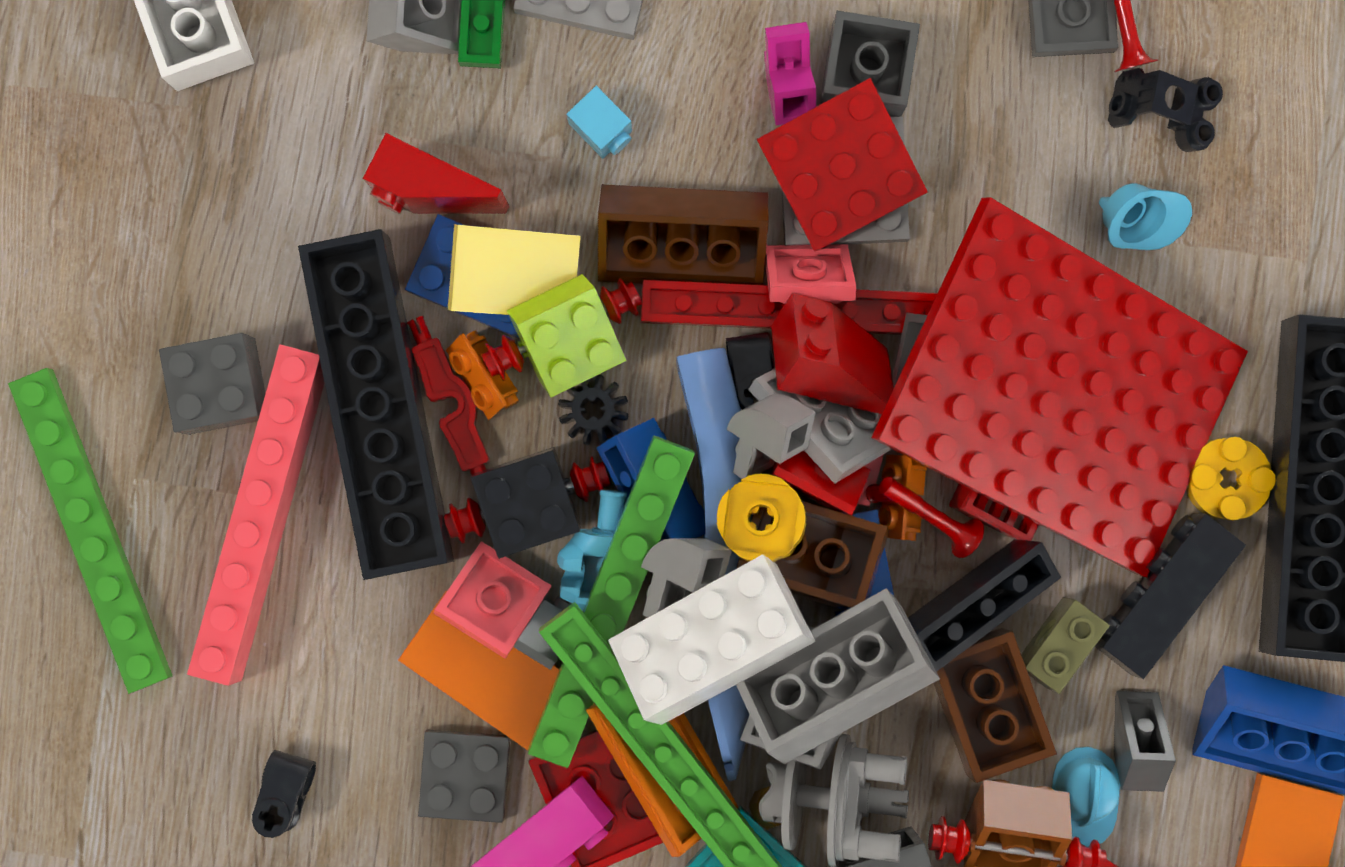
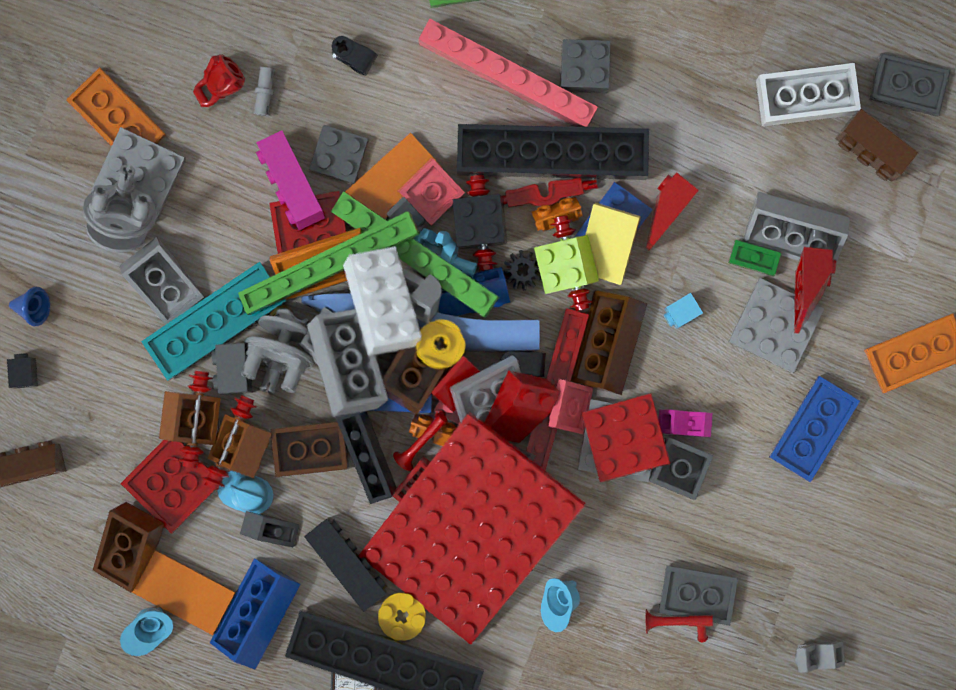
camera: 110 degrees right, 0 degrees up
(770, 433) = (485, 359): light grey brick -> none
(1062, 644) = (332, 497): olive brick -> none
(1145, 93) = (628, 618): black piece -> none

